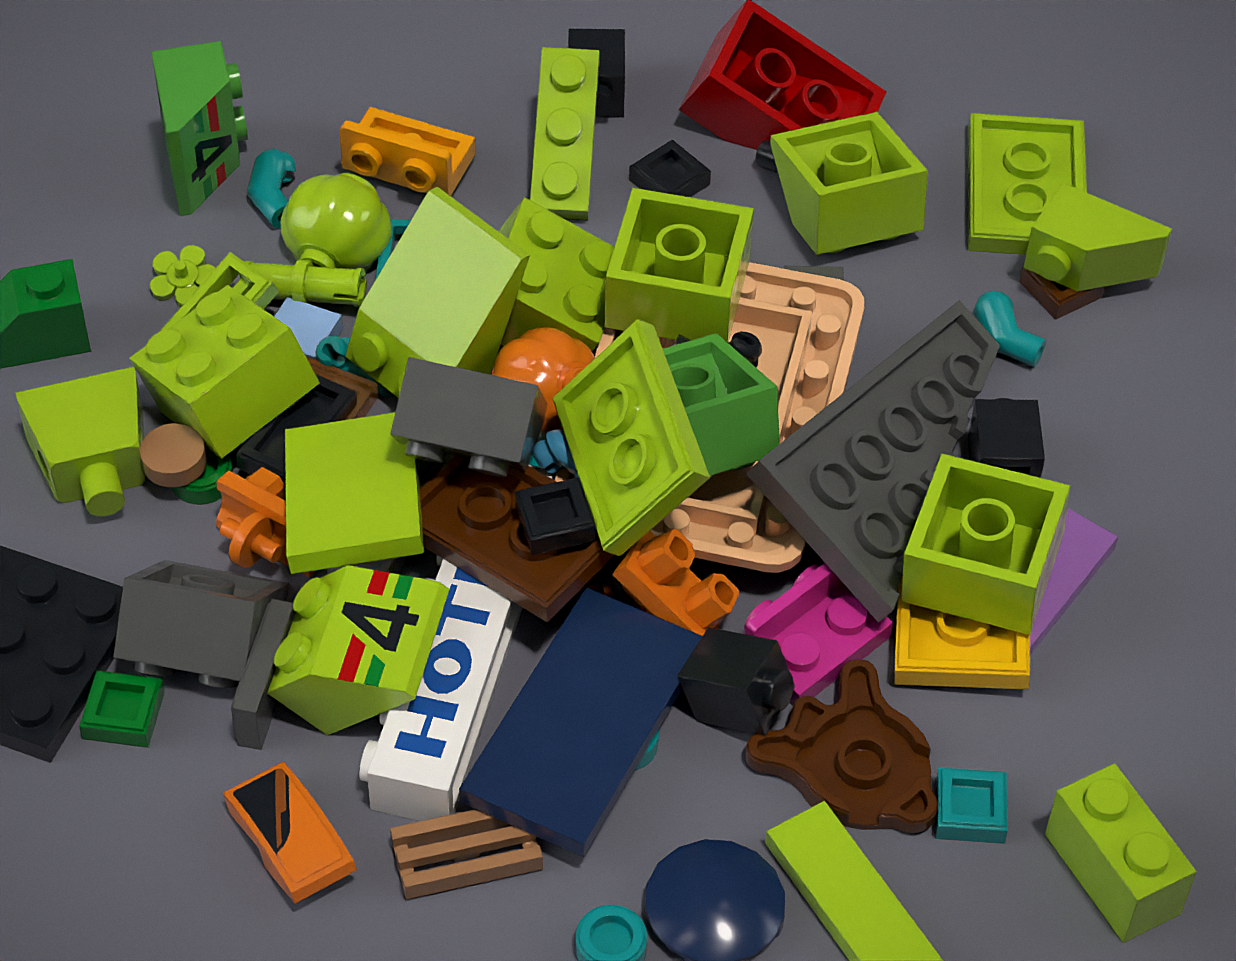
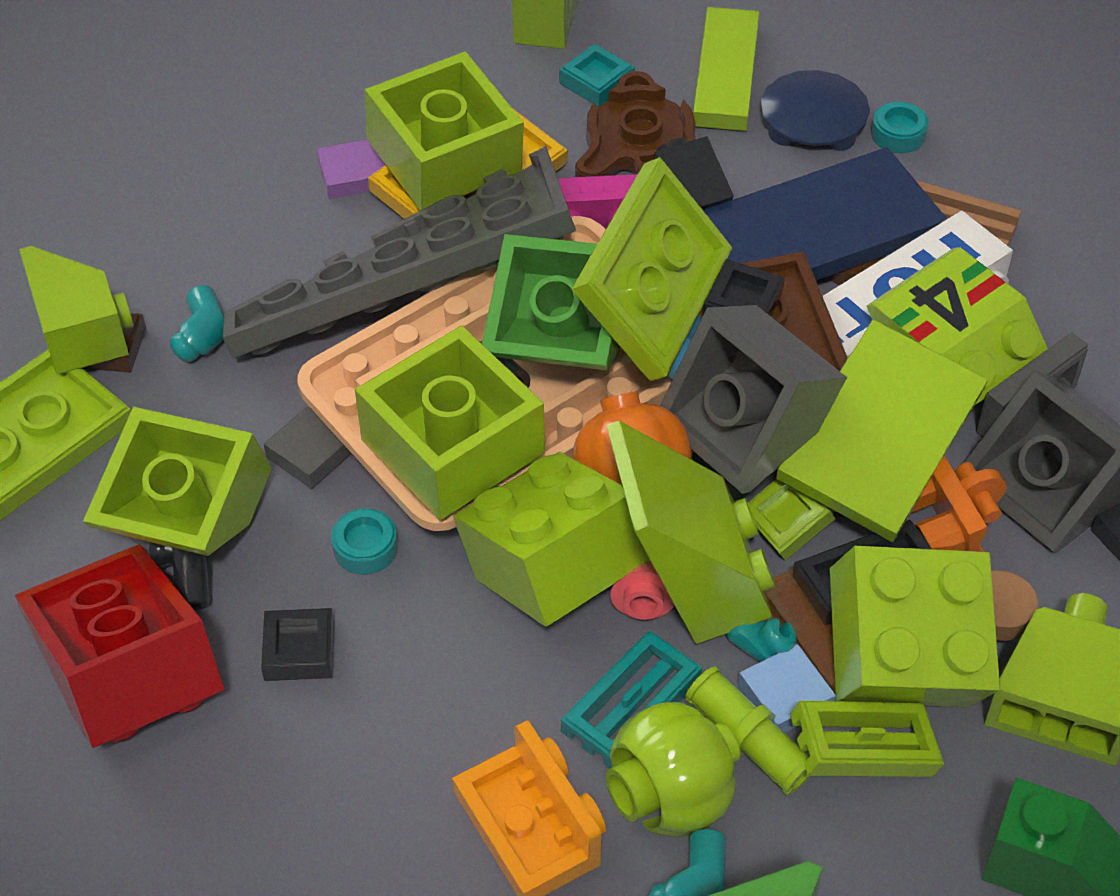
camera: 140 degrees left, 0 degrees up
(179, 276) = (857, 837): lime plant -> none
(290, 831) = (1082, 288): slope -> none
(565, 131) = (364, 713): lime plate -> none
(611, 66) = (256, 784): black brick -> none
(1007, 435) = (321, 226): black brick -> none

